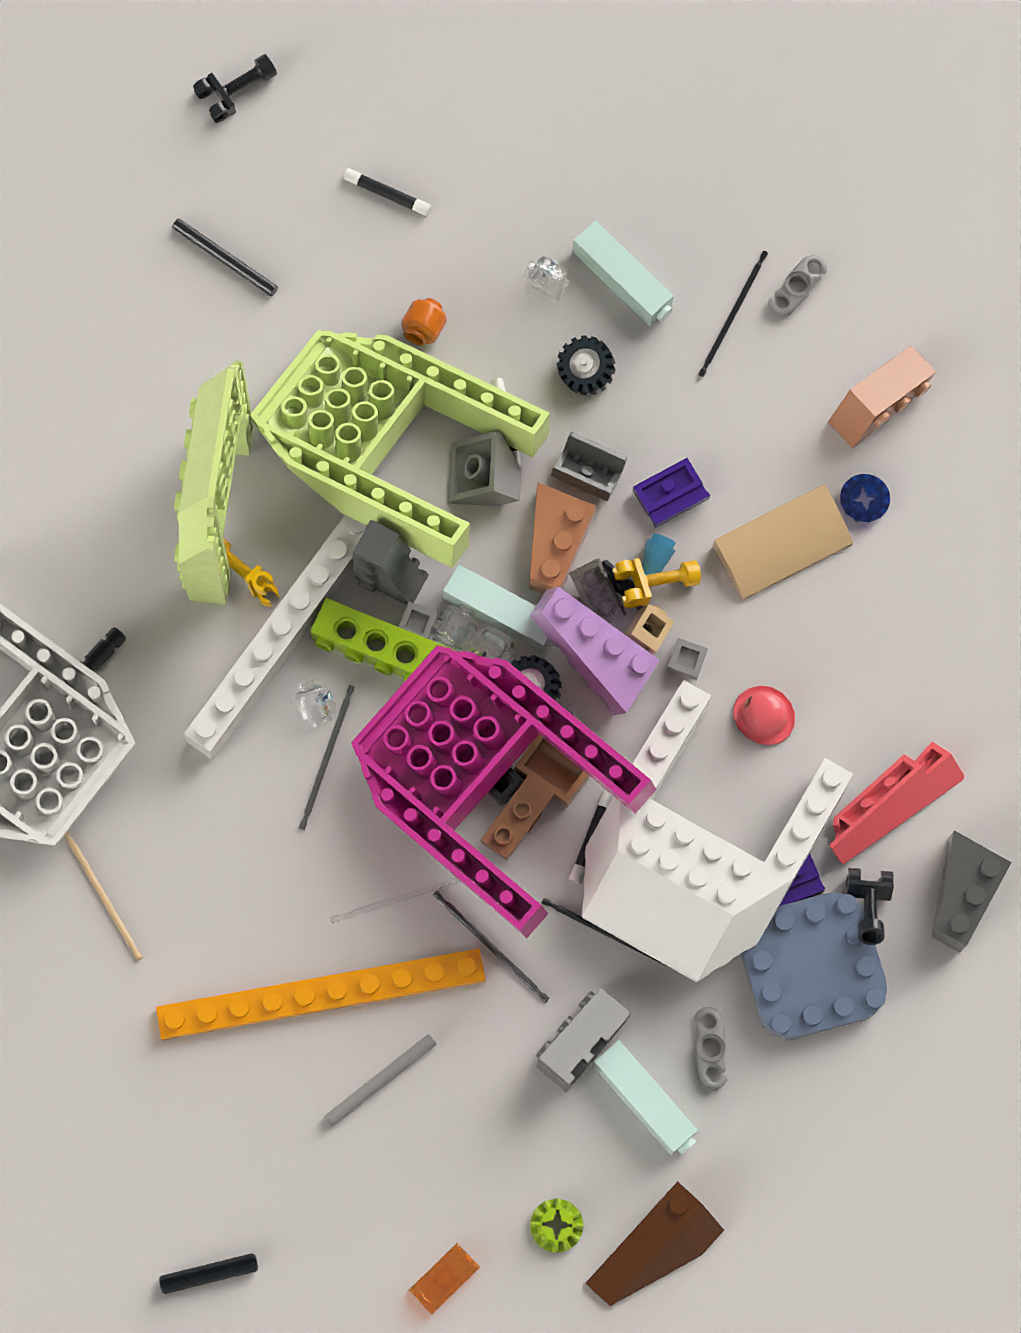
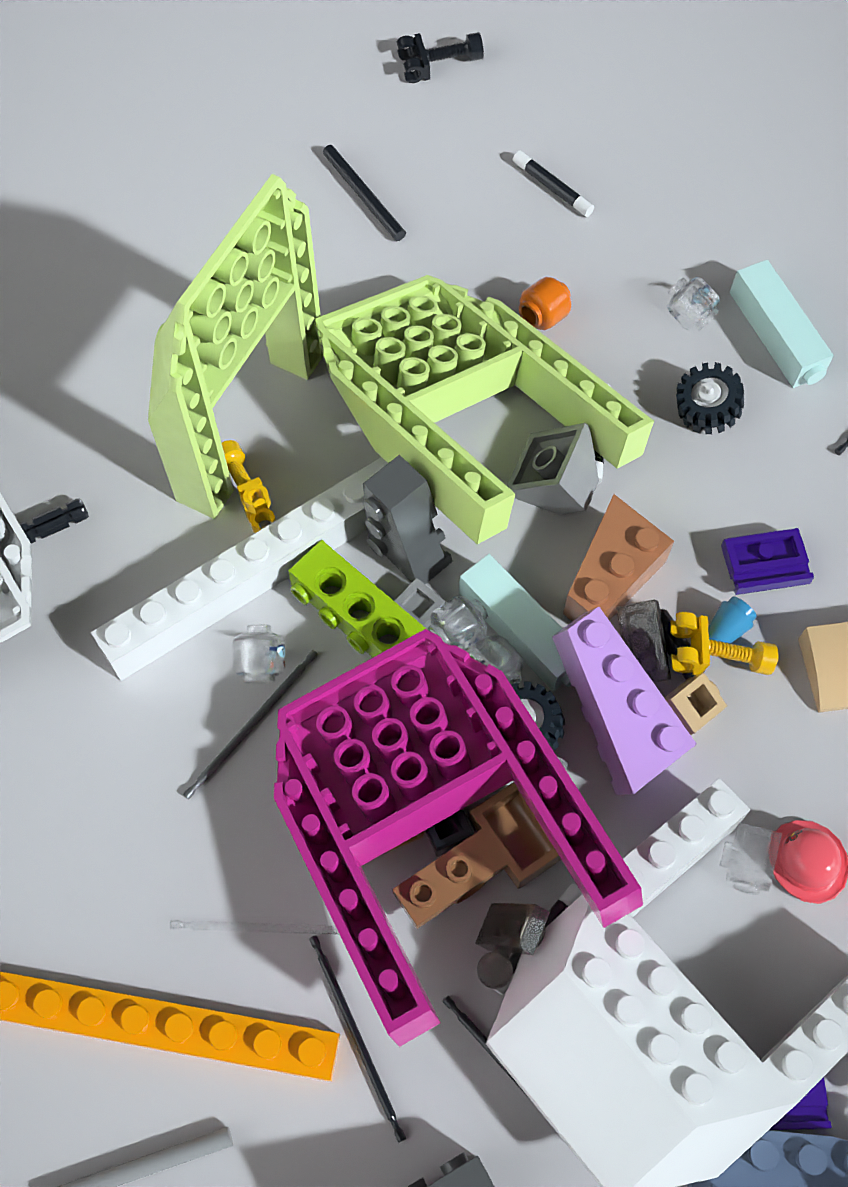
camera: 25 degrees right, 10 degrees down
(568, 840) = (505, 931): none -> clear smoke plate
(589, 466) = (680, 501): dark grey bracket -> none
(687, 659) = (729, 757): light grey plate -> none
(722, 728) = (751, 858): none -> clear brick

